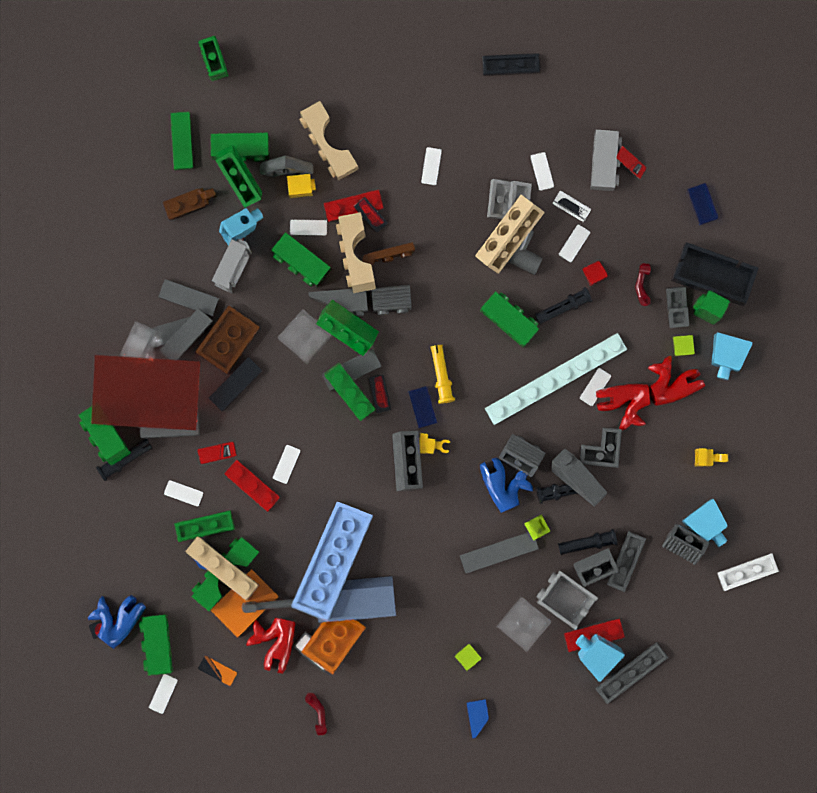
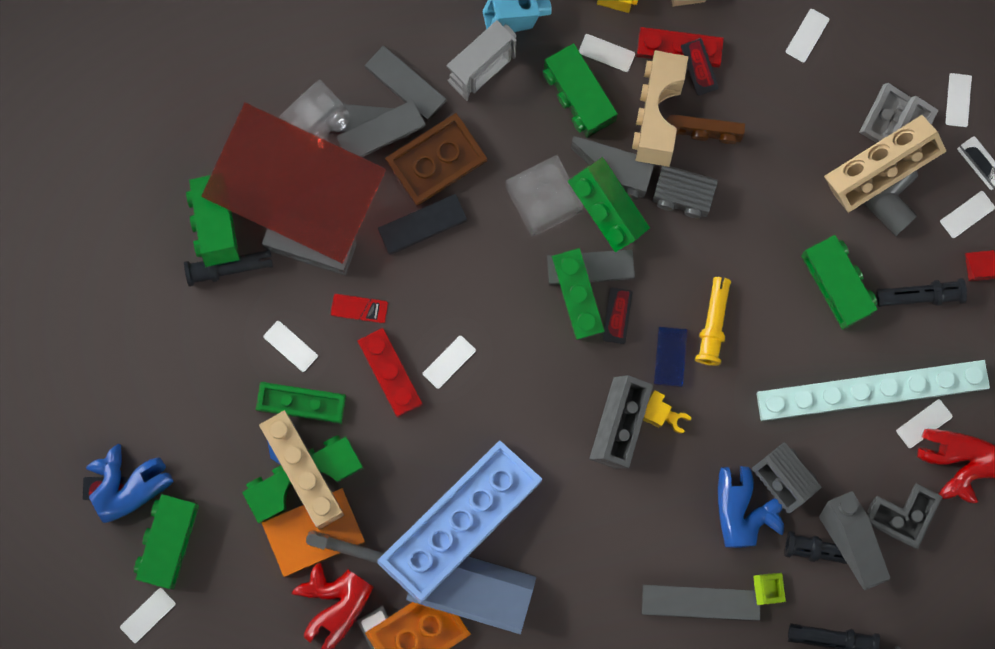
camera: 20 degrees right, 5 degrees down
(217, 670) = (237, 613): sticker -> none

